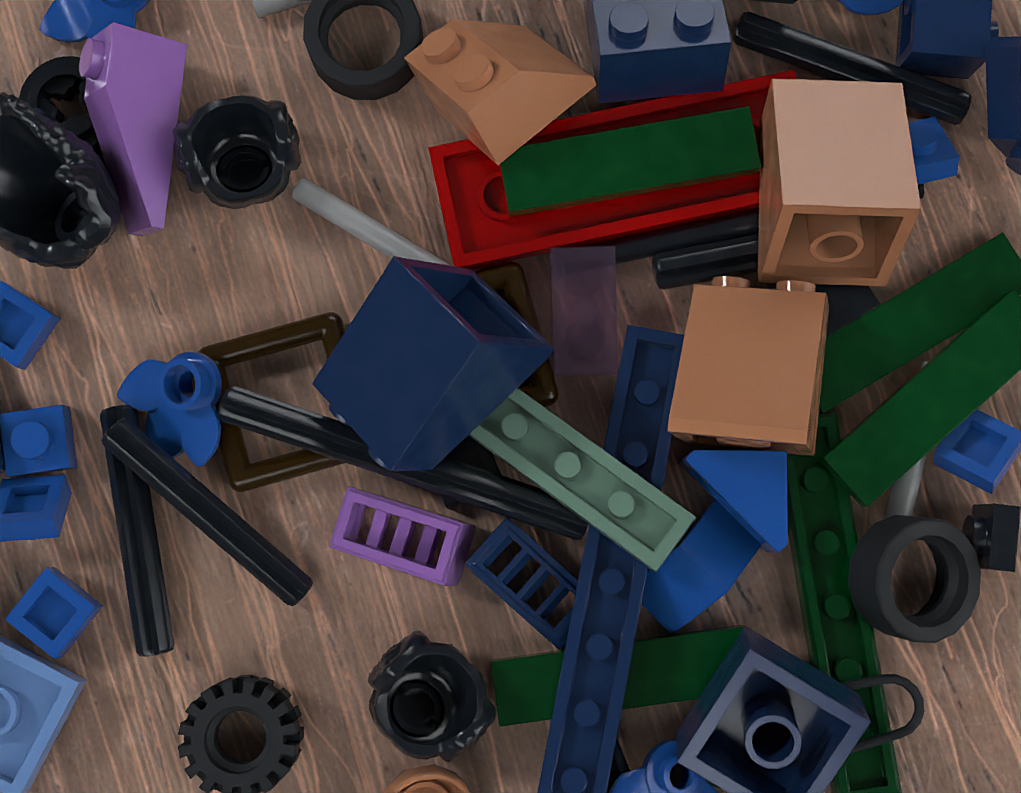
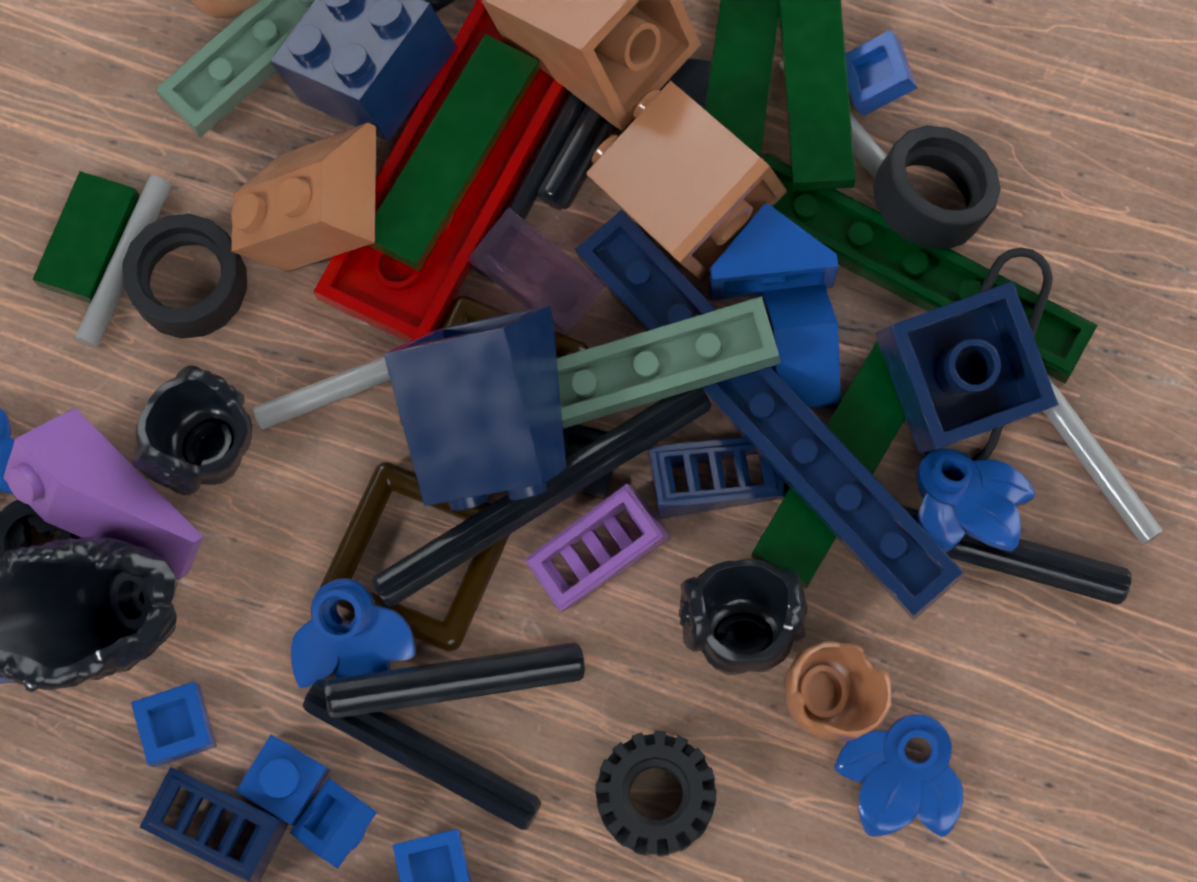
camera: 45 degrees left, 10 degrees down
(994, 535) = (951, 107): black plate -> none

